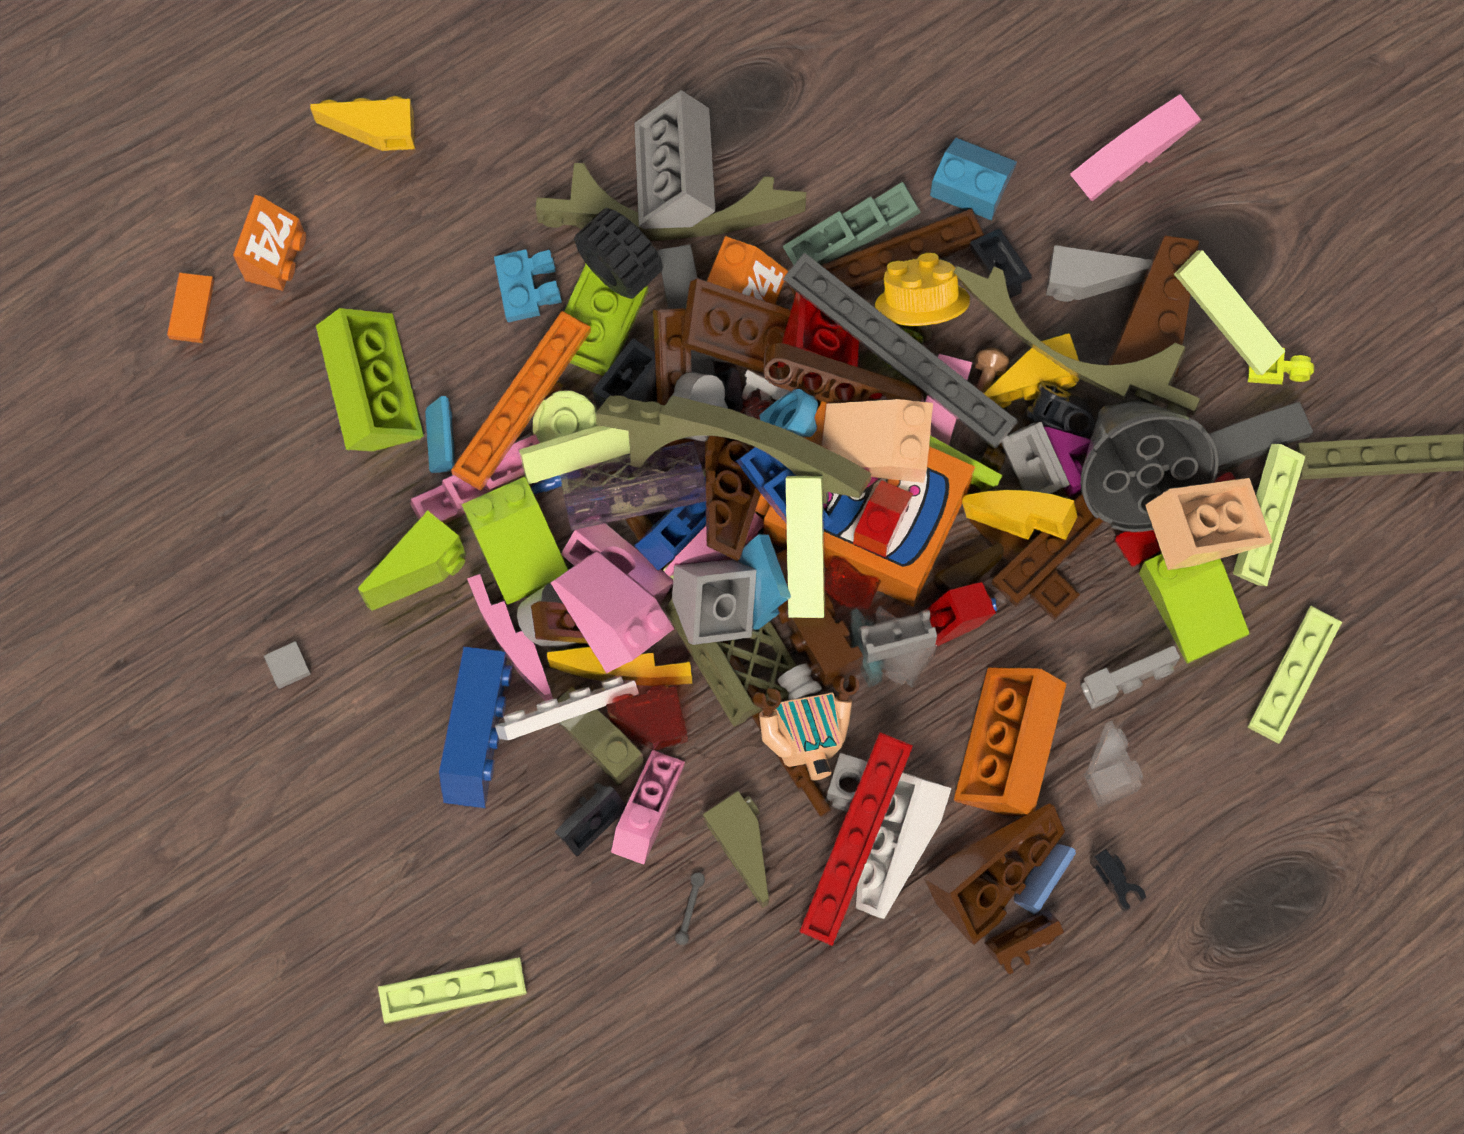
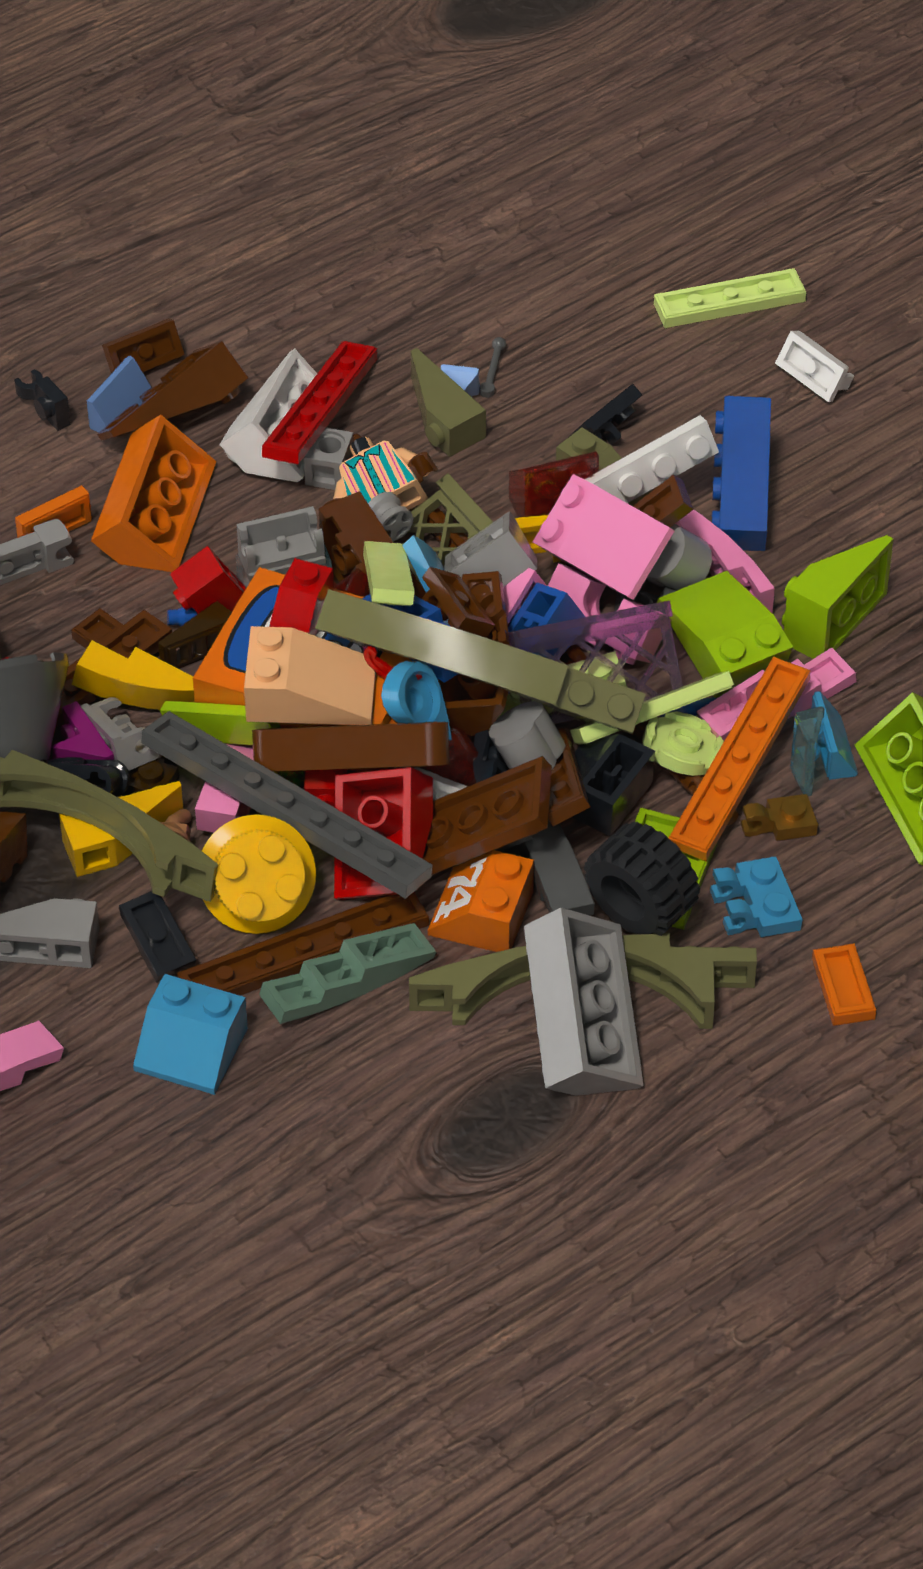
camera: 175 degrees right, 25 degrees down
(387, 874) = (814, 366): none -> white plate
(462, 401) = (807, 747): none -> clear light blue slope
(470, 203) = (844, 984): none -> orange tile
(490, 360) = (784, 816): none -> pearl gold plate
(647, 807) = (548, 419): bright pink slope -> none
(723, 875) = (465, 377): none -> light blue slope
(747, 505) = (456, 602): none -> reddish brown plate
(1096, 722) = (71, 508): none -> orange tile
(1110, 770) = (41, 473): clear slope -> none

